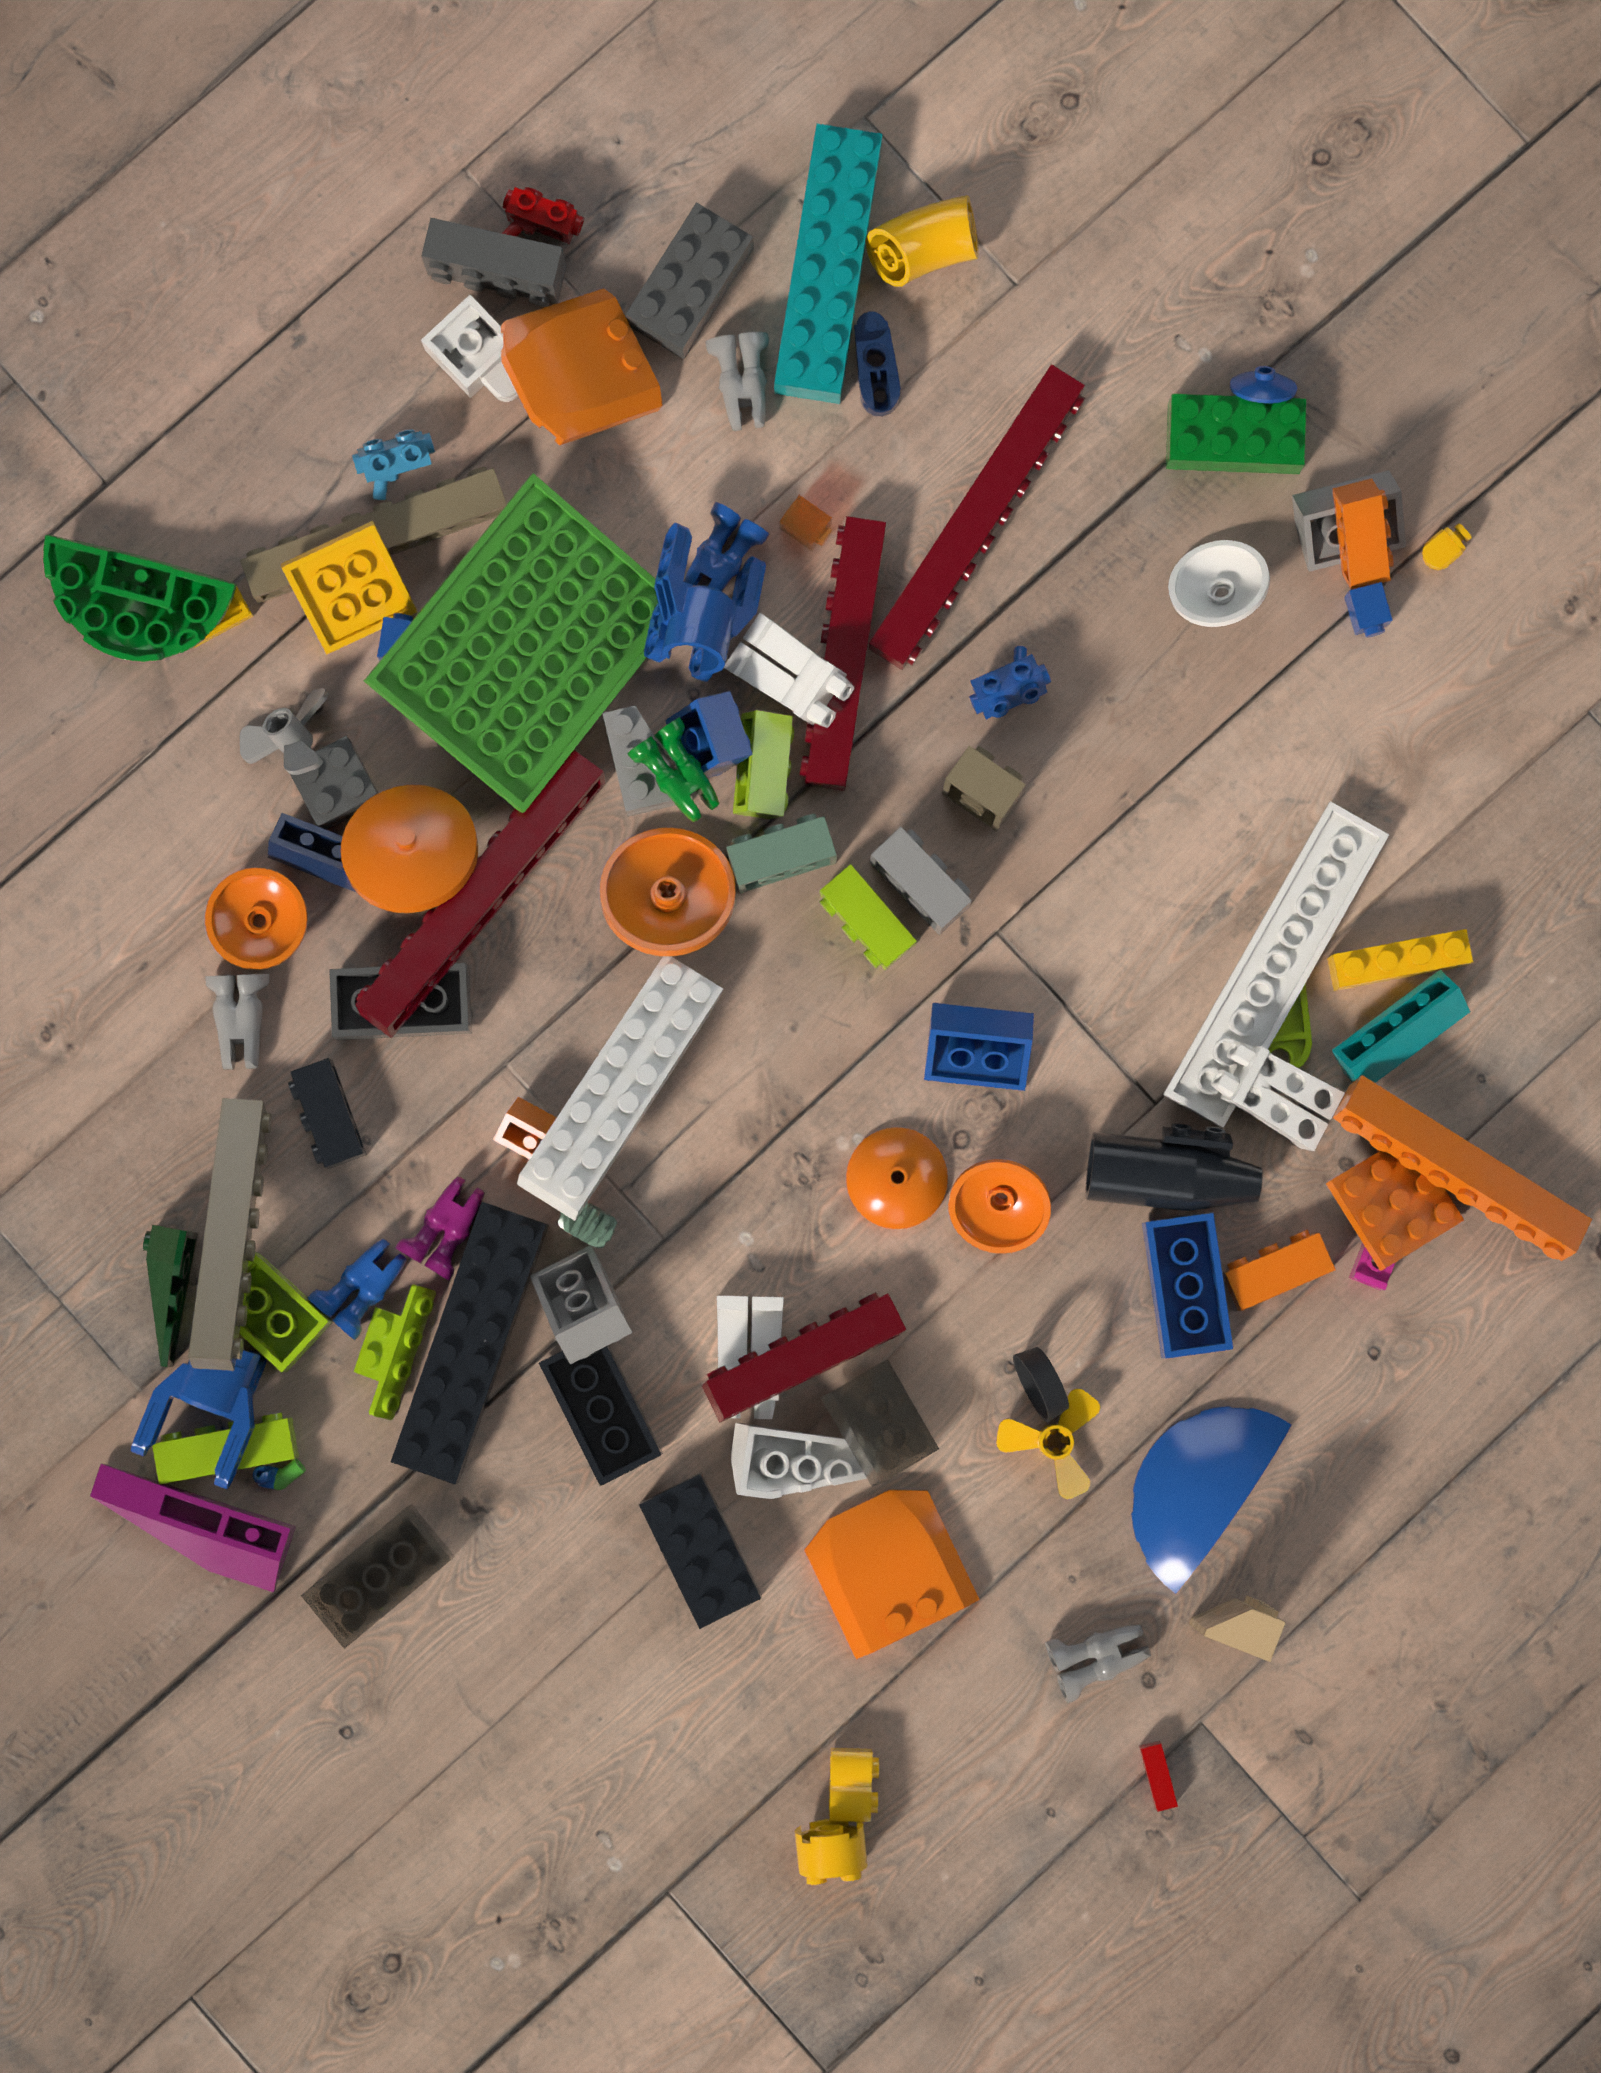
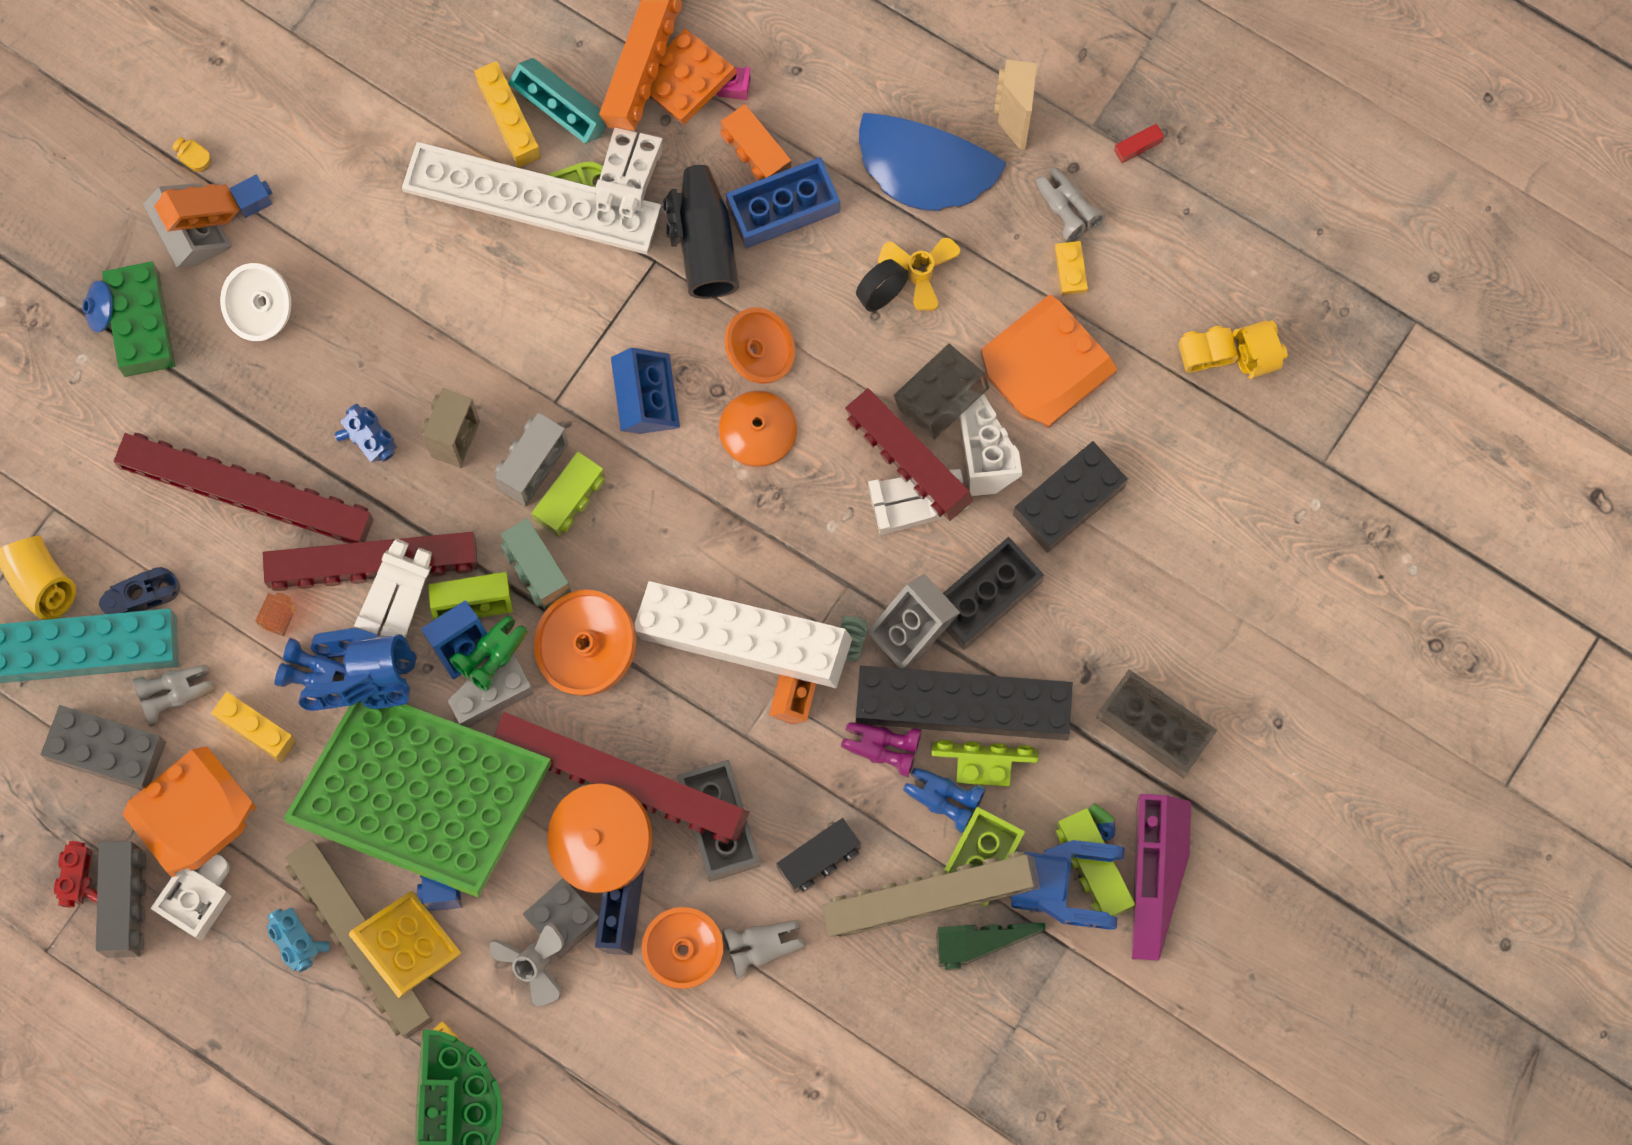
camera: 105 degrees left, 10 degrees down
(669, 465) = (253, 727): none -> yellow brick
(1009, 1638) = (1071, 268): none -> yellow plate

